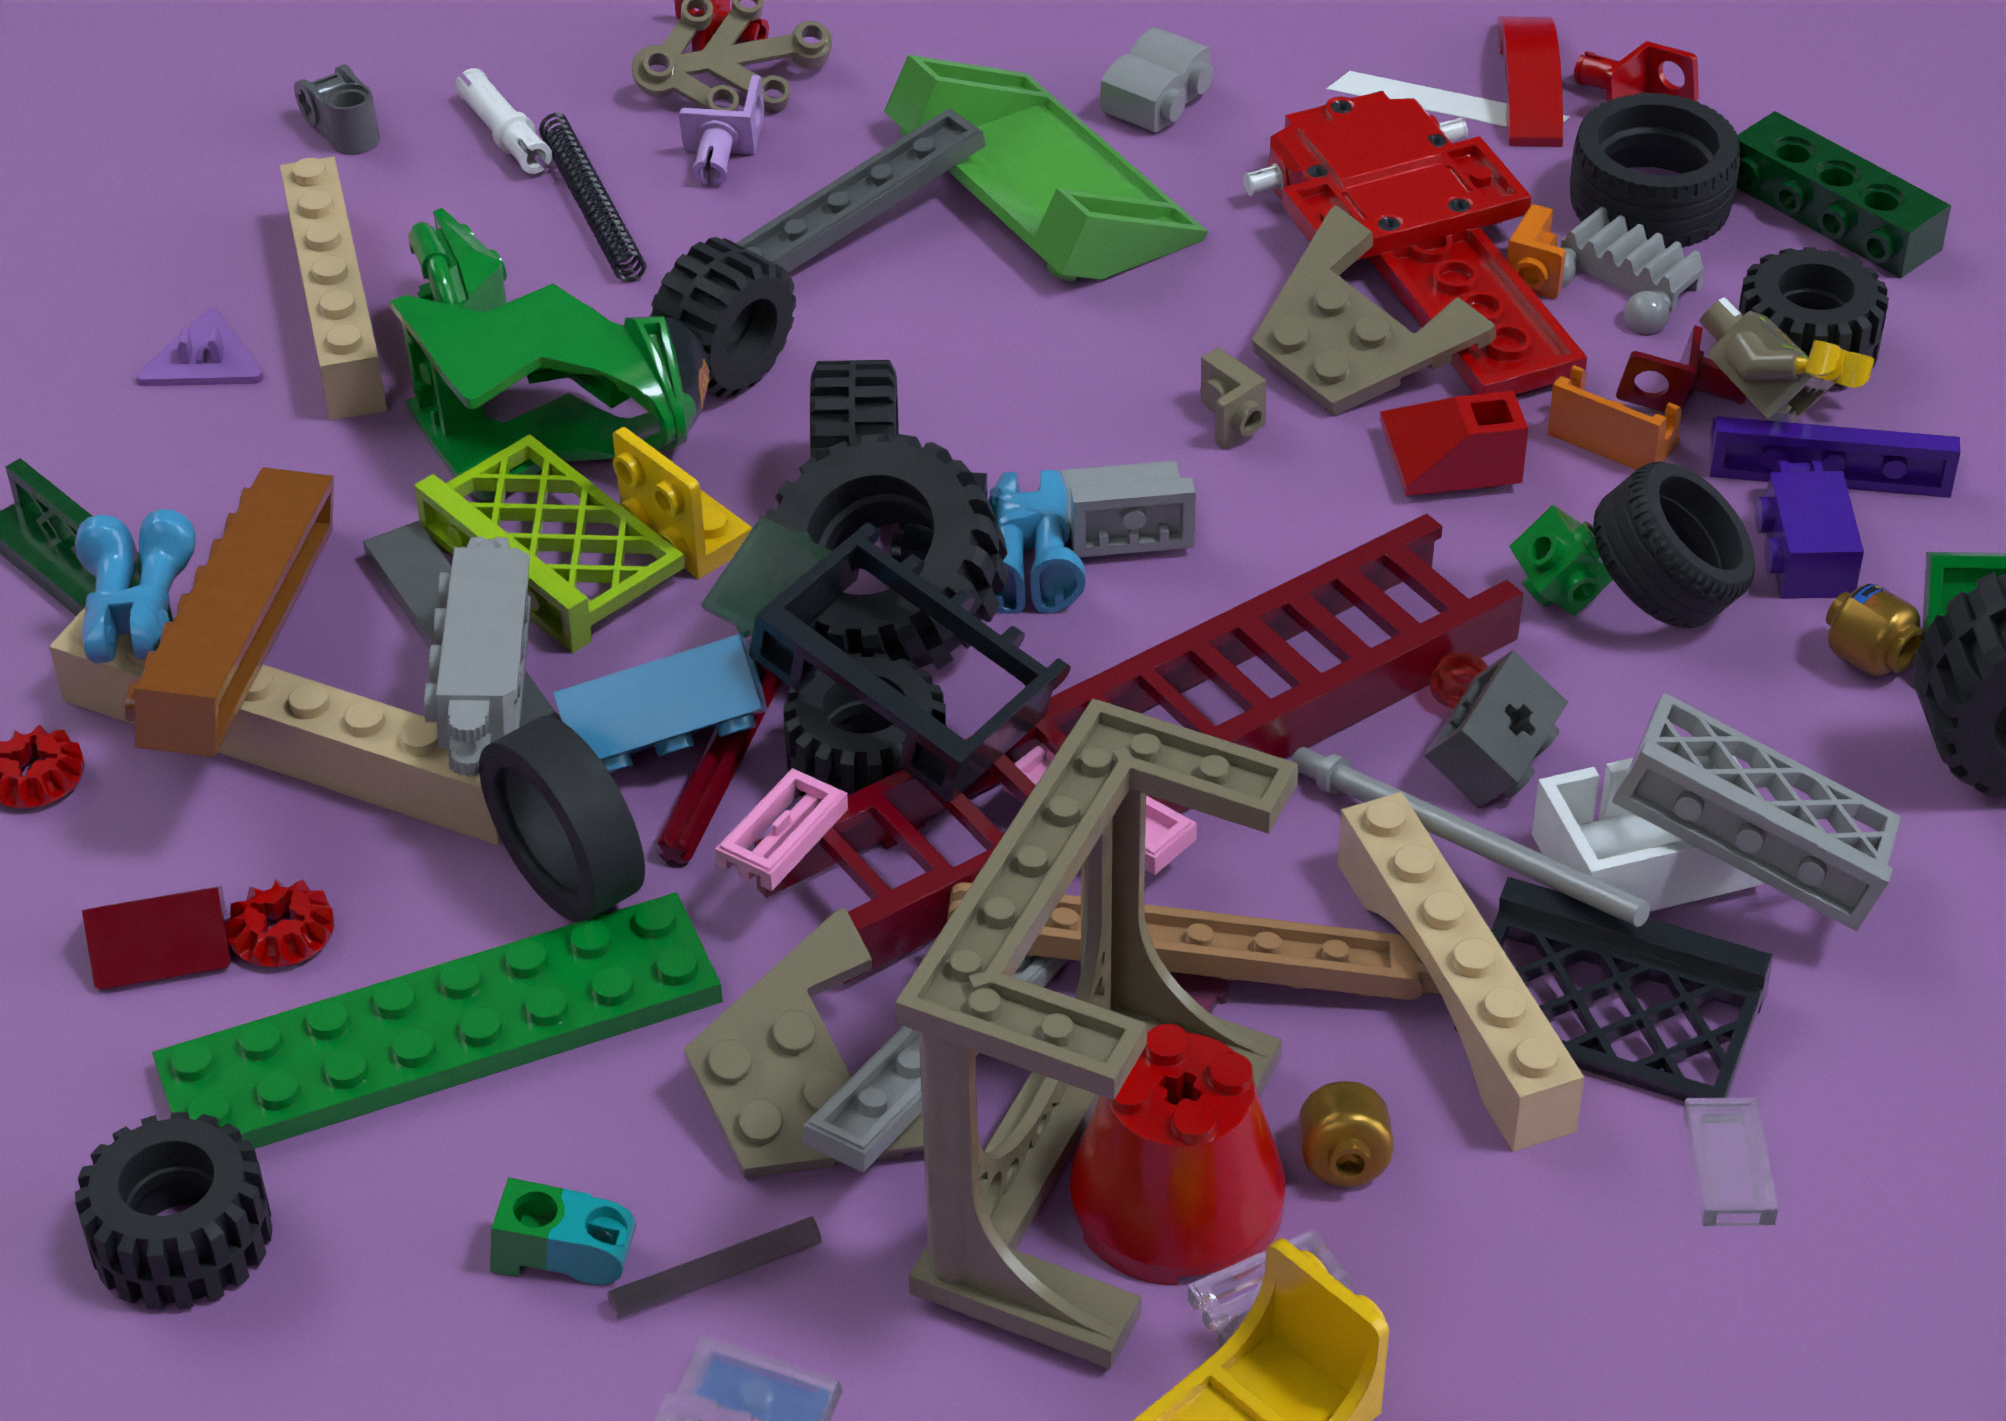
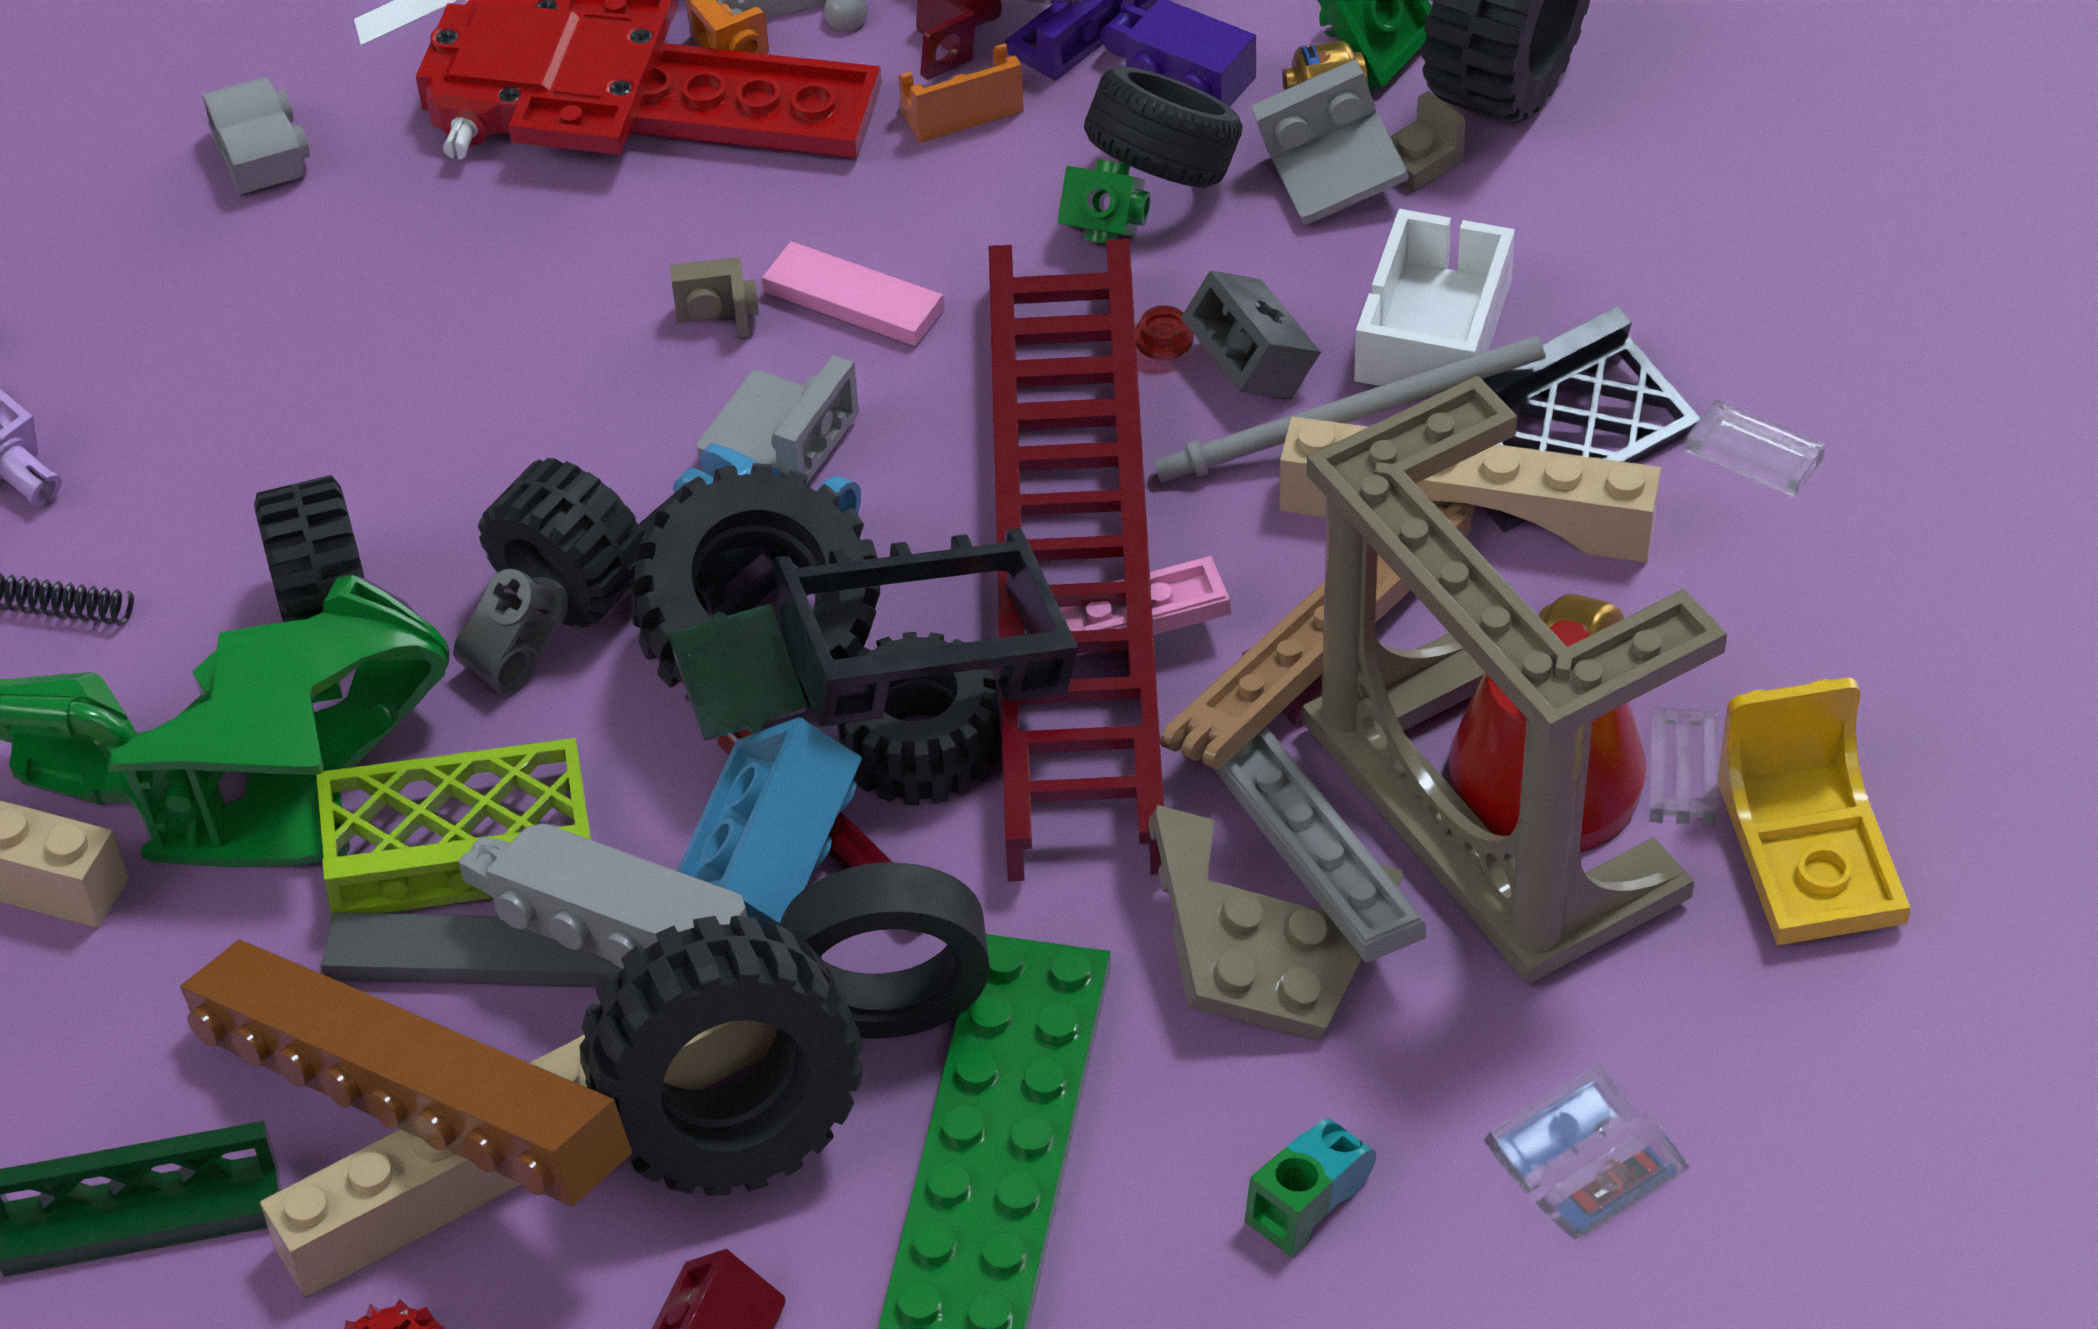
camera: 55 degrees left, 5 degrees up
(111, 556) = (271, 1099): dark azure piece -> none
(288, 940) = (800, 1232): red gear -> none
(414, 747) = (706, 980): none -> black tyre
(675, 505) = (509, 708): yellow bracket -> none
(714, 1267) = (1407, 1100): clear smoke bar -> none
(757, 463) = (506, 633): none -> dark grey piece
(792, 833) = (1033, 847): bright pink tile -> none
(866, 191) = (210, 424): dark grey tile -> none
(1045, 170) = (287, 269): bright green slope -> none
(1324, 478) = (853, 293): none -> bright pink tile
(1341, 342) = (711, 195): dark tan wing -> none
(1457, 443) = (901, 188): red slope -> none
(1766, 839) = (1498, 228): light grey fence -> none
(1798, 667) = (1329, 142): none -> light grey bracket
(1875, 743) = (1431, 142): none -> dark tan bracket

